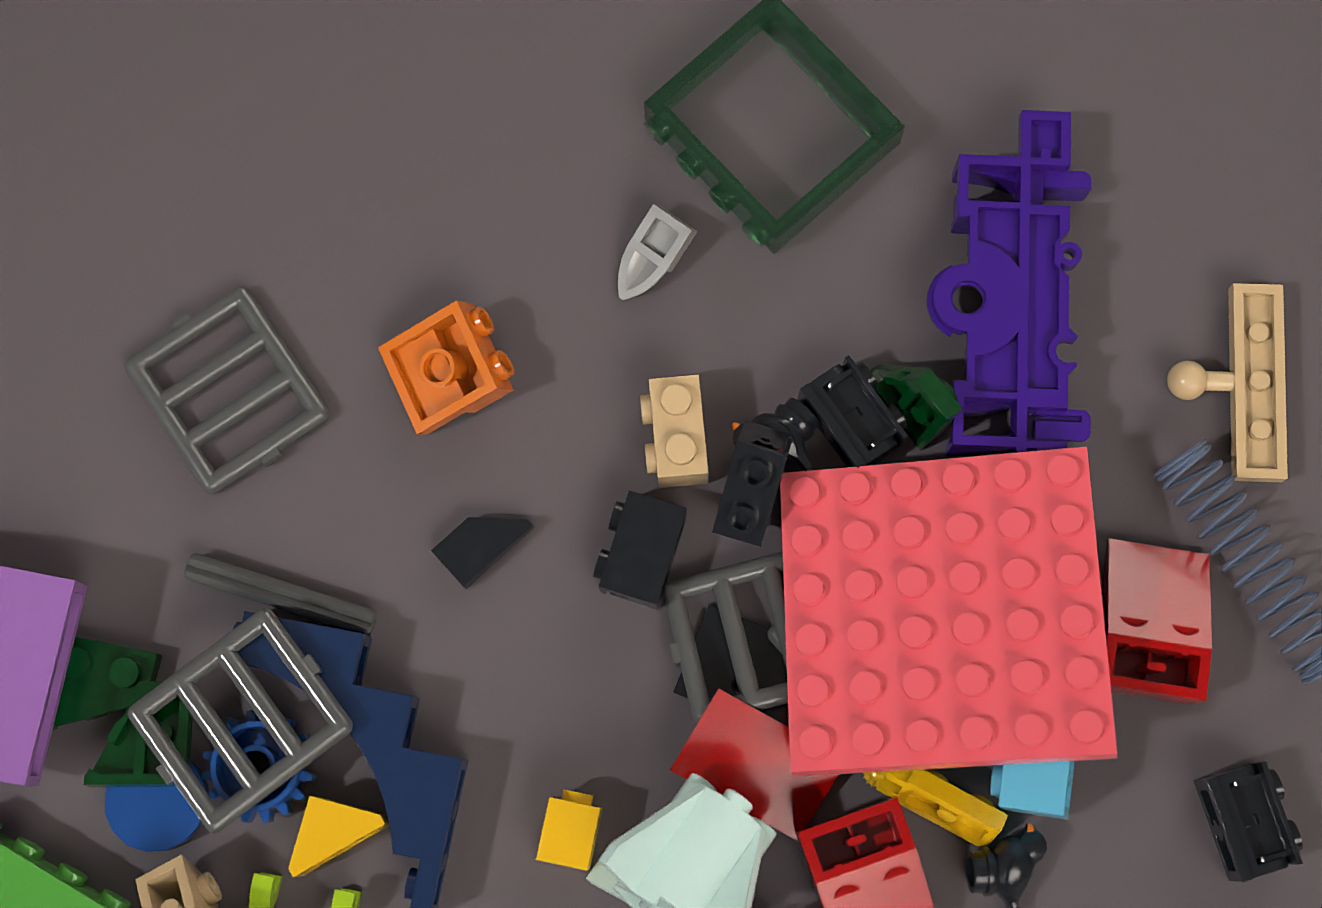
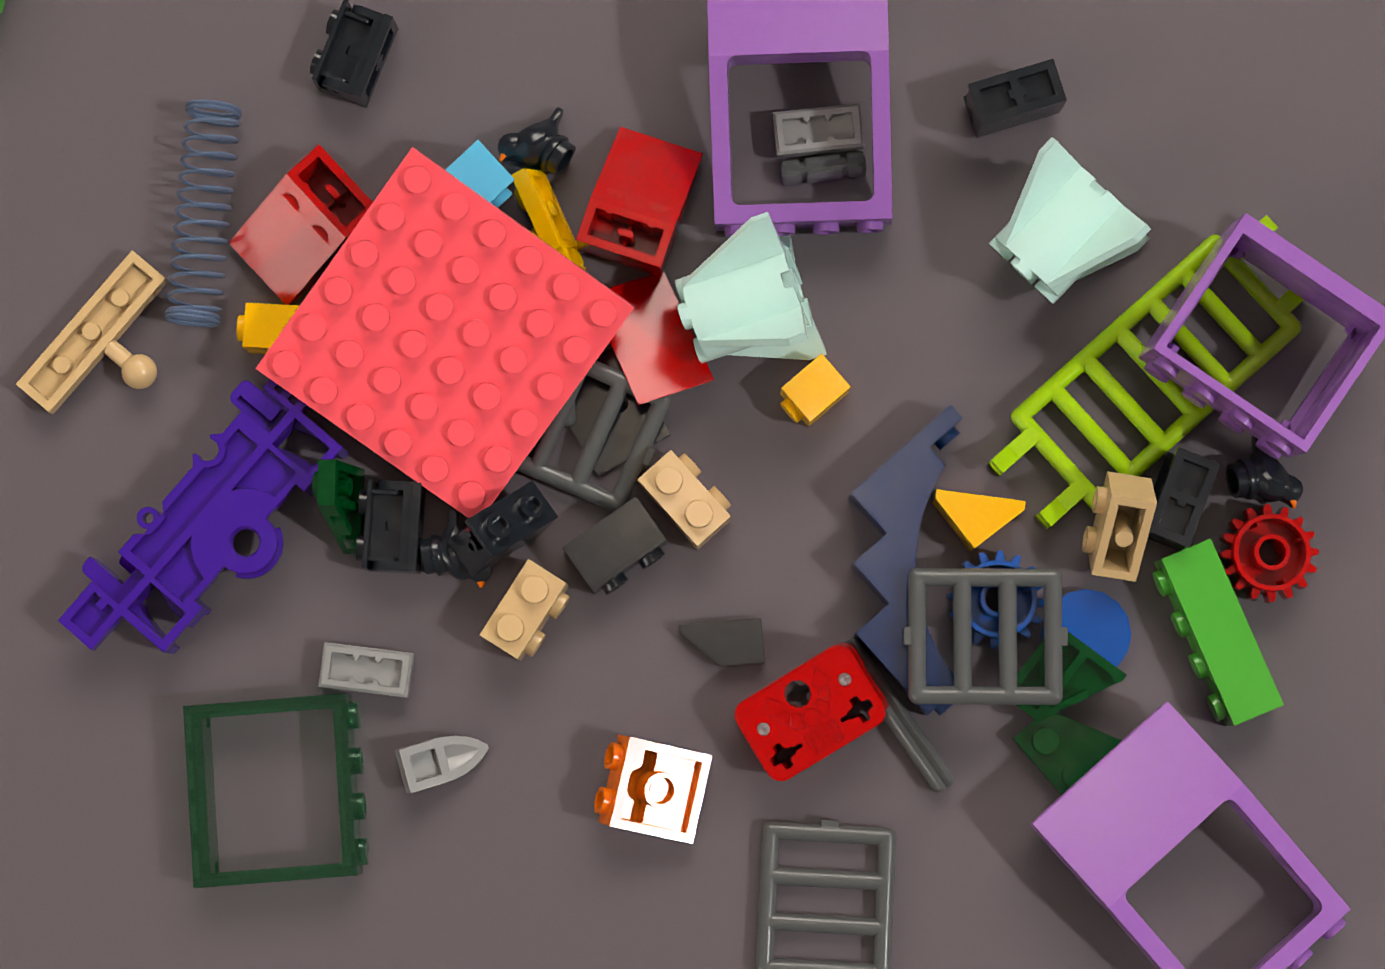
camera: 145 degrees left, 5 degrees up
(340, 527) = (820, 724): none -> red axle
(611, 638) = (684, 499): none -> tan brick
(776, 280) = (366, 669): none -> light grey plate
(1115, 501) = (262, 325): none -> yellow brick

